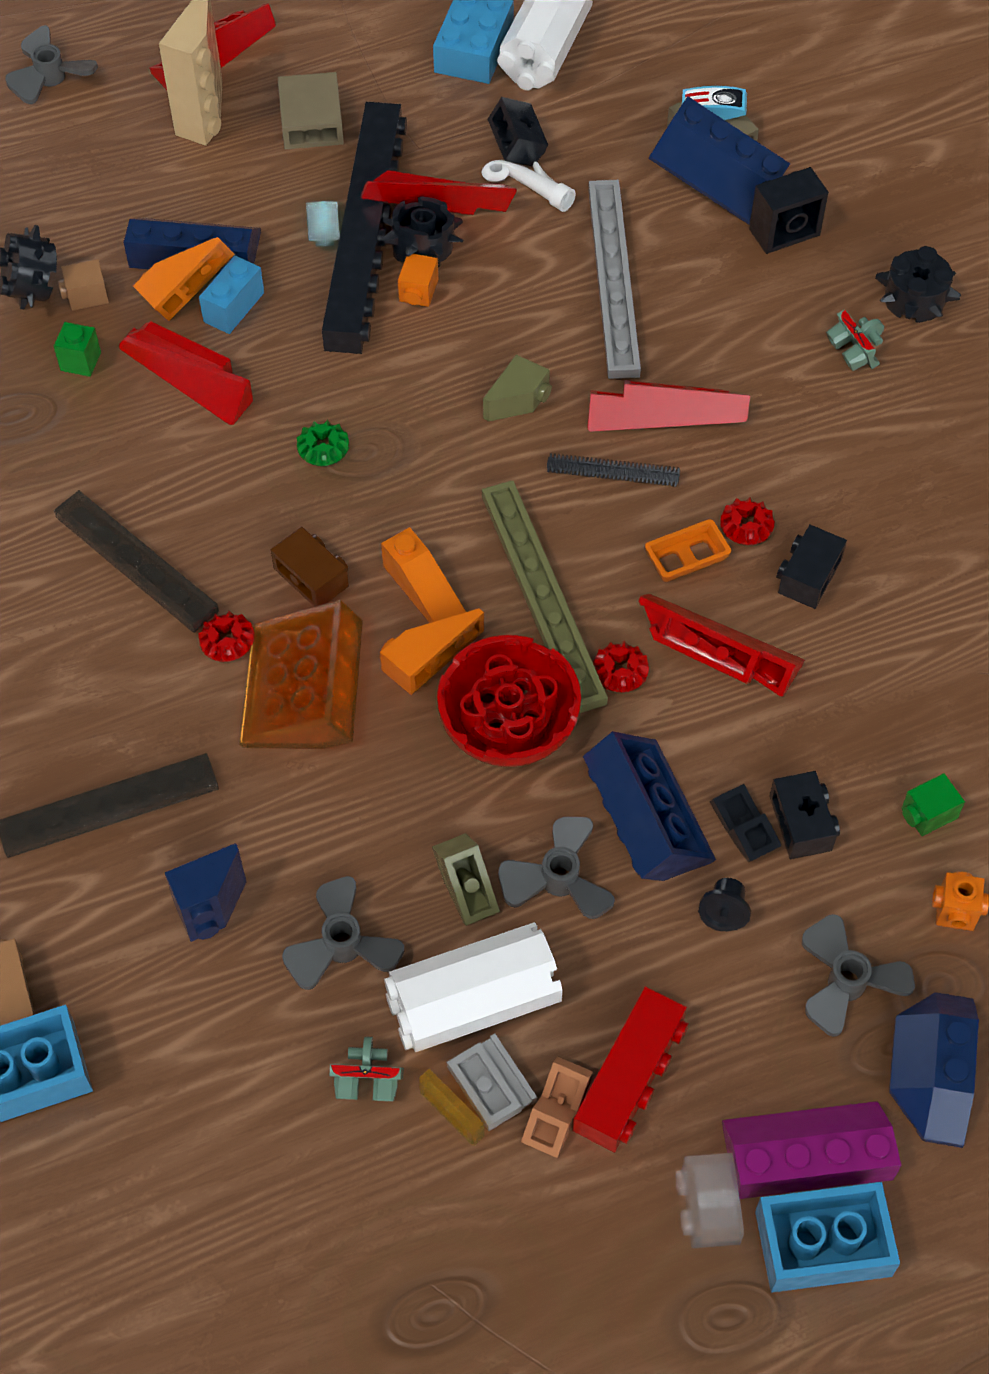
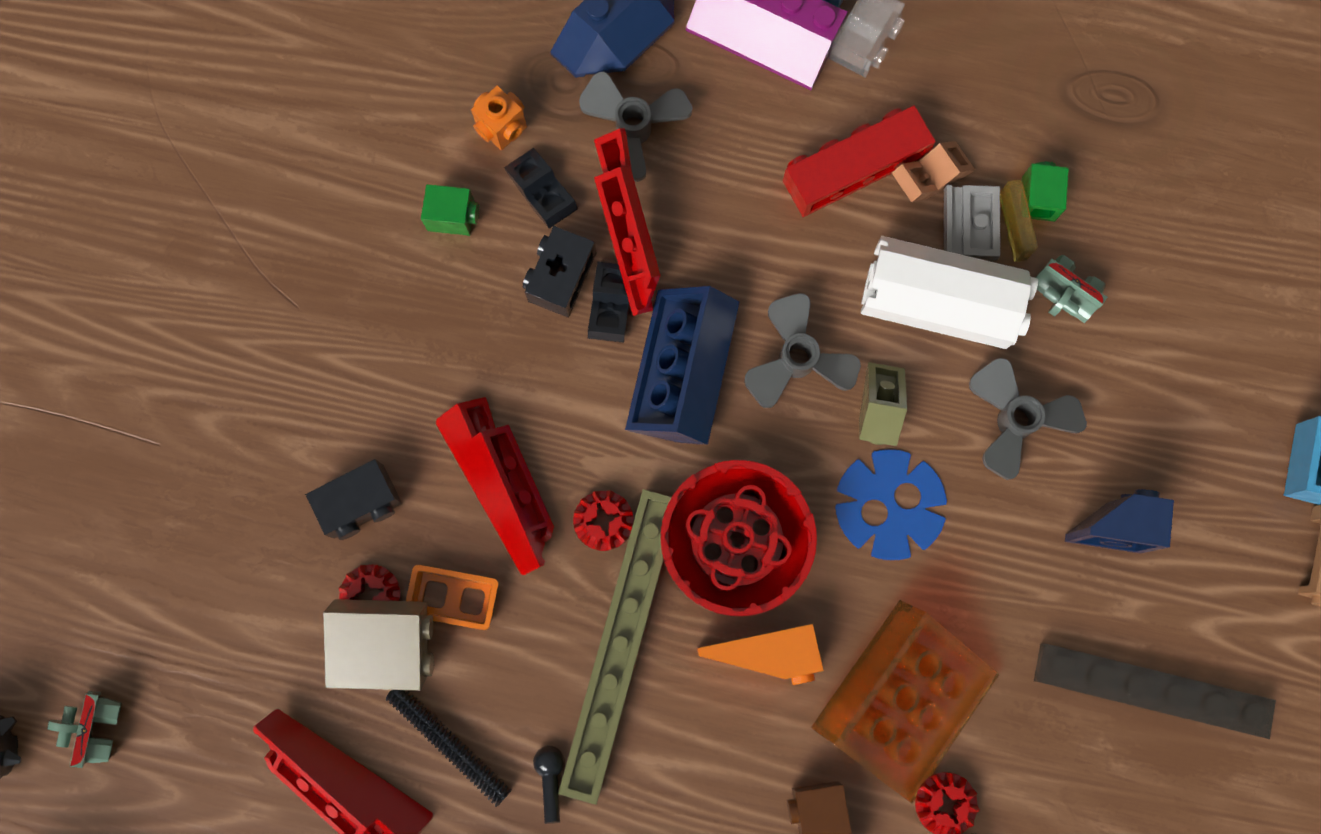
camera: 145 degrees left, 20 degrees up
(389, 794) = (891, 536): none -> blue piece
(420, 576) = (724, 733): orange slope -> none
(445, 1150) = (1046, 190): none -> green brick
(533, 499) = (549, 763): none -> black bar
(712, 487) = (377, 644): none -> brick
(725, 906) = (684, 239): black piece -> none
(789, 880) = (626, 221): none -> red wedge
(879, 878) = (541, 188): none -> black slope

